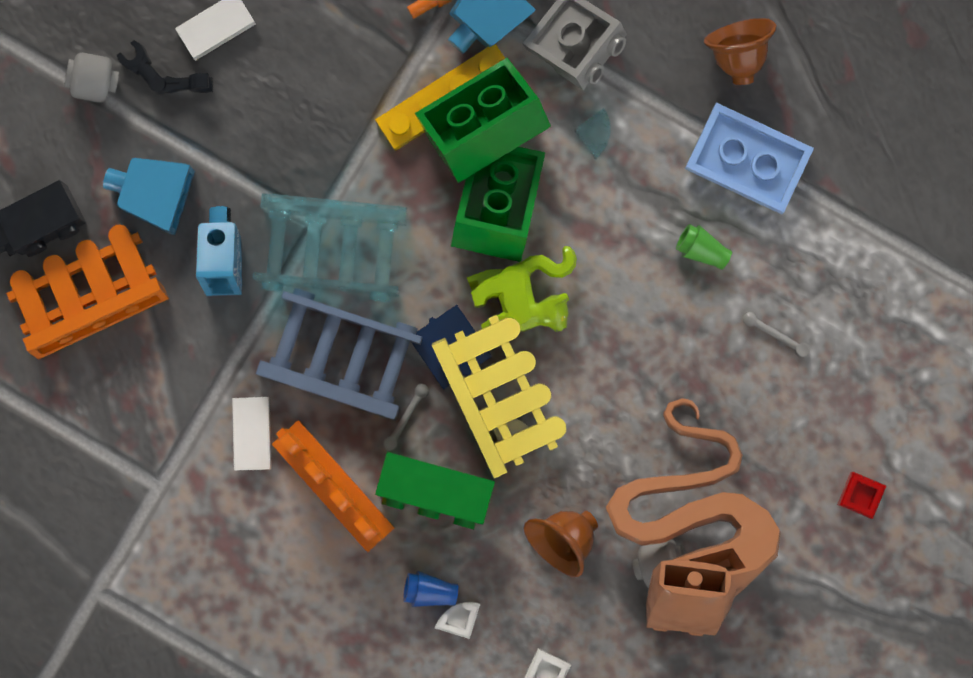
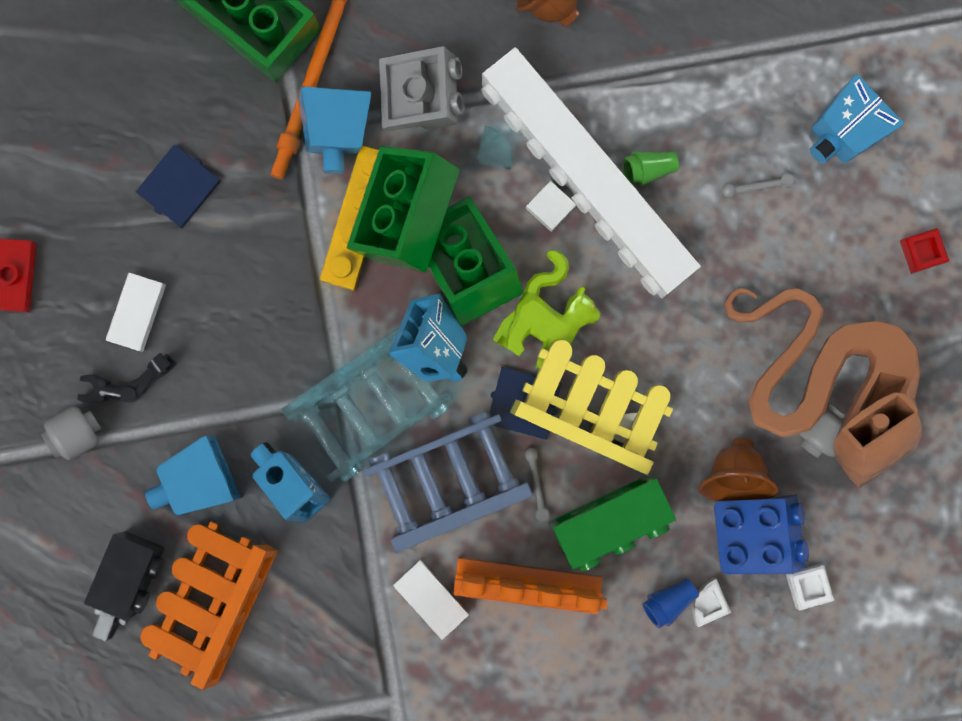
camera: 40 degrees left, 0 degrees up
(418, 238) = (430, 340): none -> dark azure torso
(543, 601) = (761, 535): none -> blue bracket
(601, 213) = (551, 206): none -> white tile
(650, 213) = (588, 174): none -> white brick
(749, 158) = (626, 71): light blue plate -> none
(889, 348) = (852, 123): none -> dark azure torso

